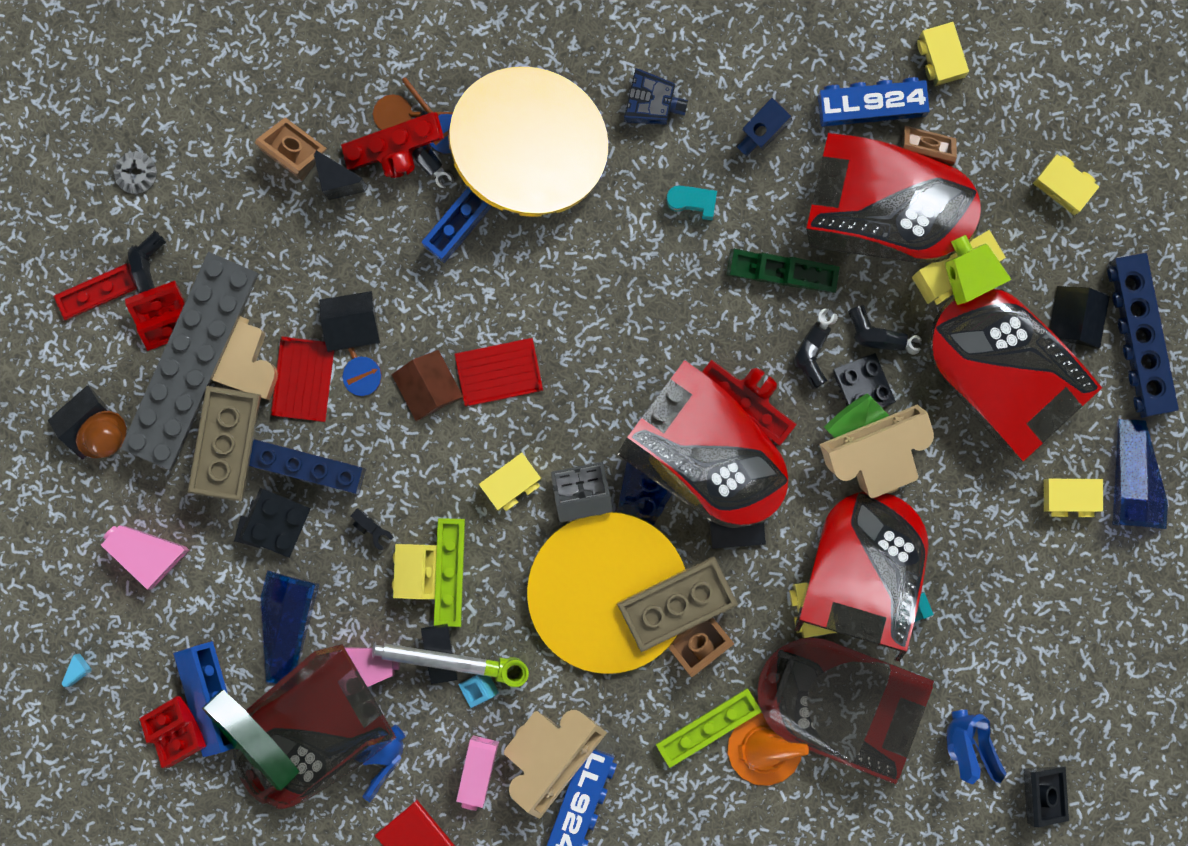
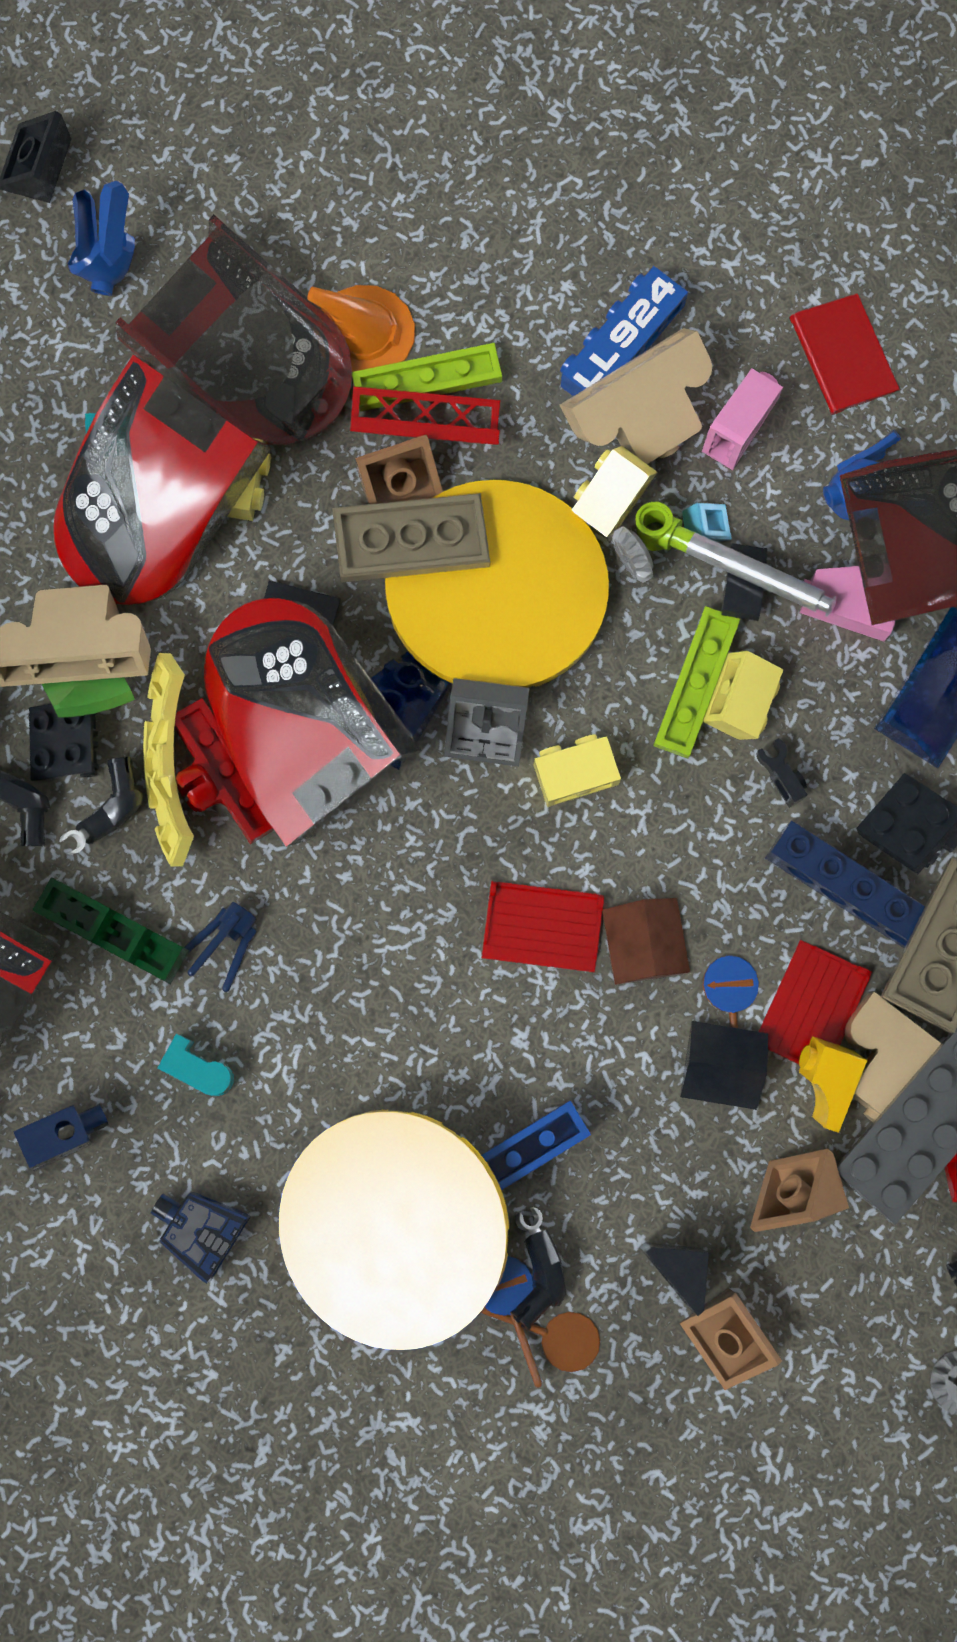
camera: 165 degrees left, 5 degrees down
(275, 251) = (799, 1191): none -> medium nougat slope
(275, 336) = (834, 1077): none -> yellow arch
(393, 145) = (584, 1290): red plate -> none
(521, 645) = (633, 554): none -> light grey gear
(549, 685) = (613, 490): none -> brick
(697, 685) = (432, 430): none -> red fence
(702, 302) = (233, 923): none -> dark blue plant
(792, 391) = (159, 768): none -> light yellow tile

